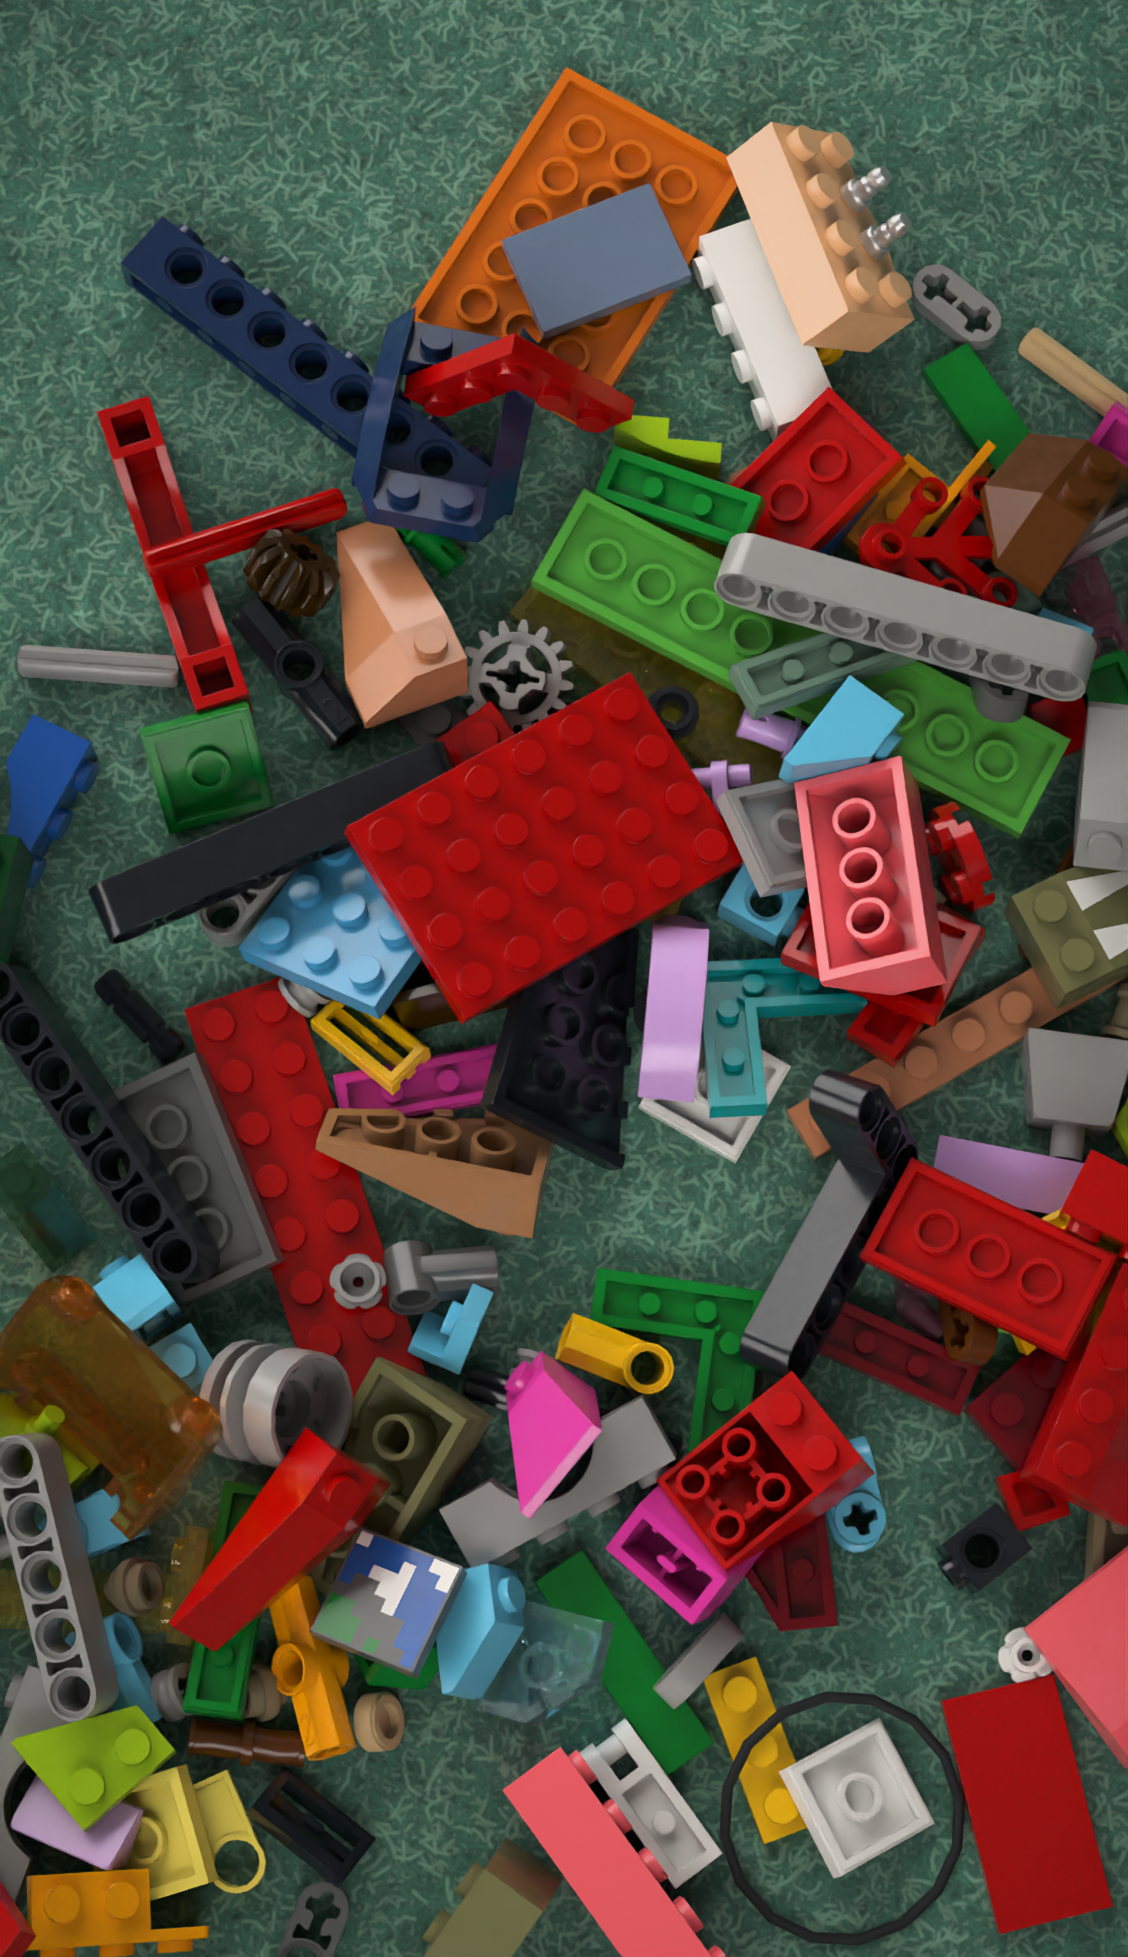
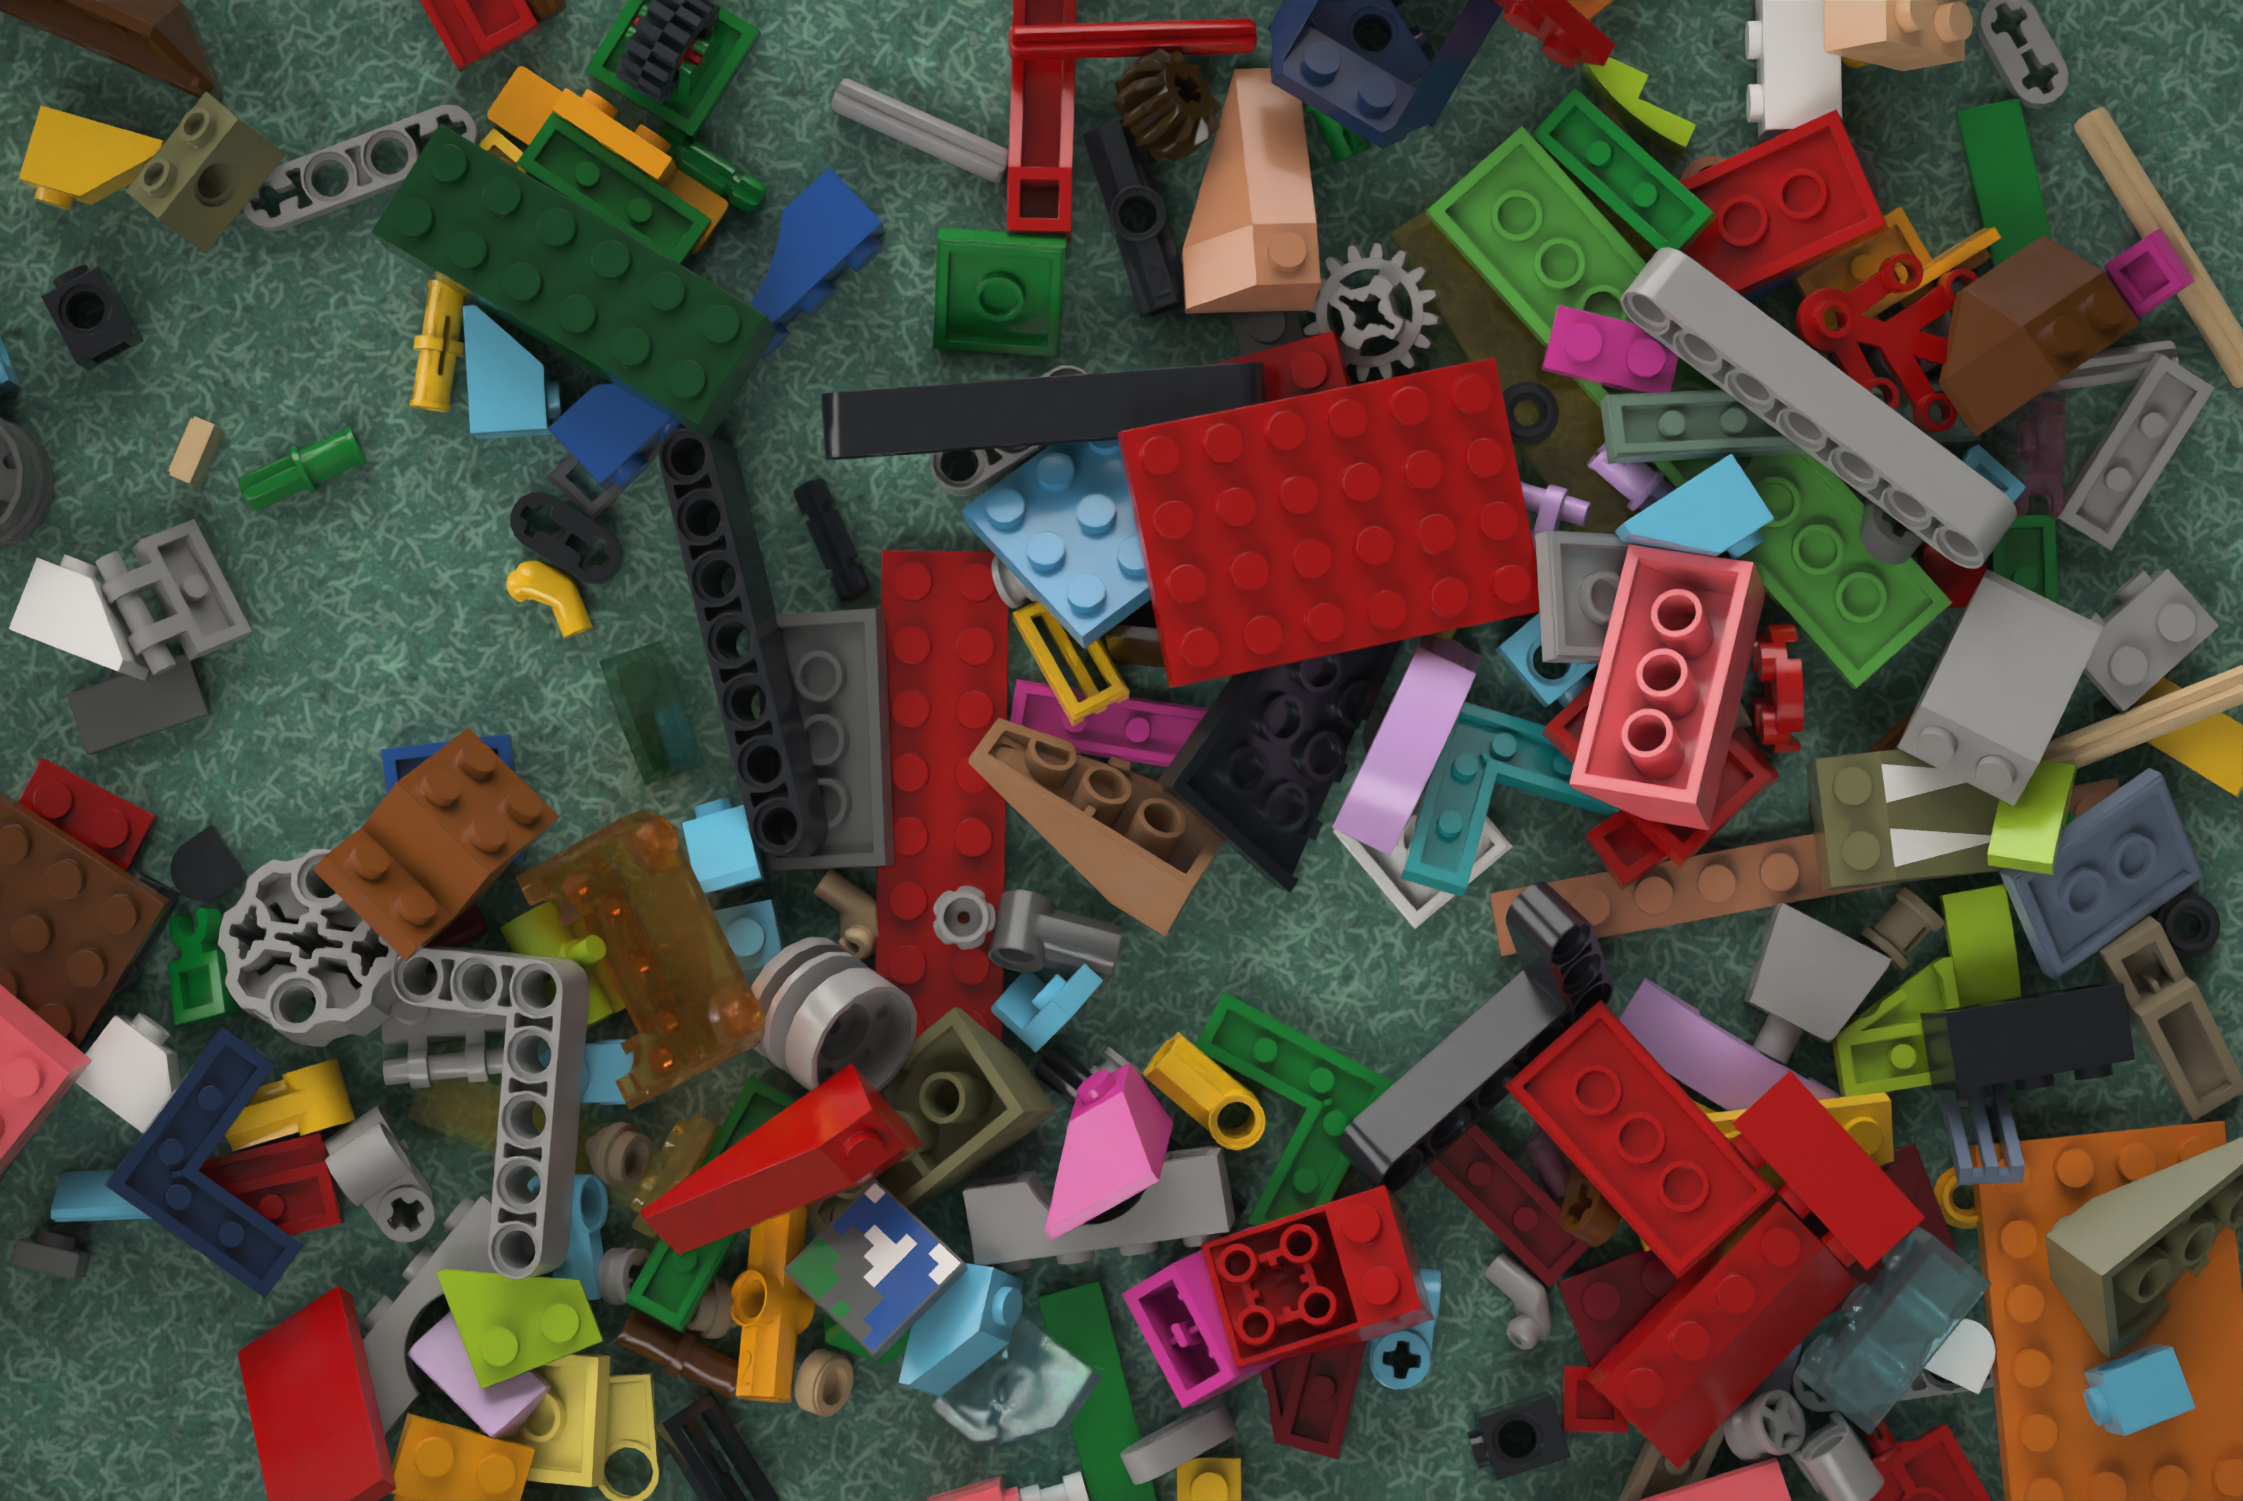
camera: 25 degrees right, 10 degrees up
(265, 1312) = (856, 914): none -> tan arm
(718, 637) = (1608, 352): none -> dark pink plate
(946, 1432) = (1529, 1298): none -> light grey arm

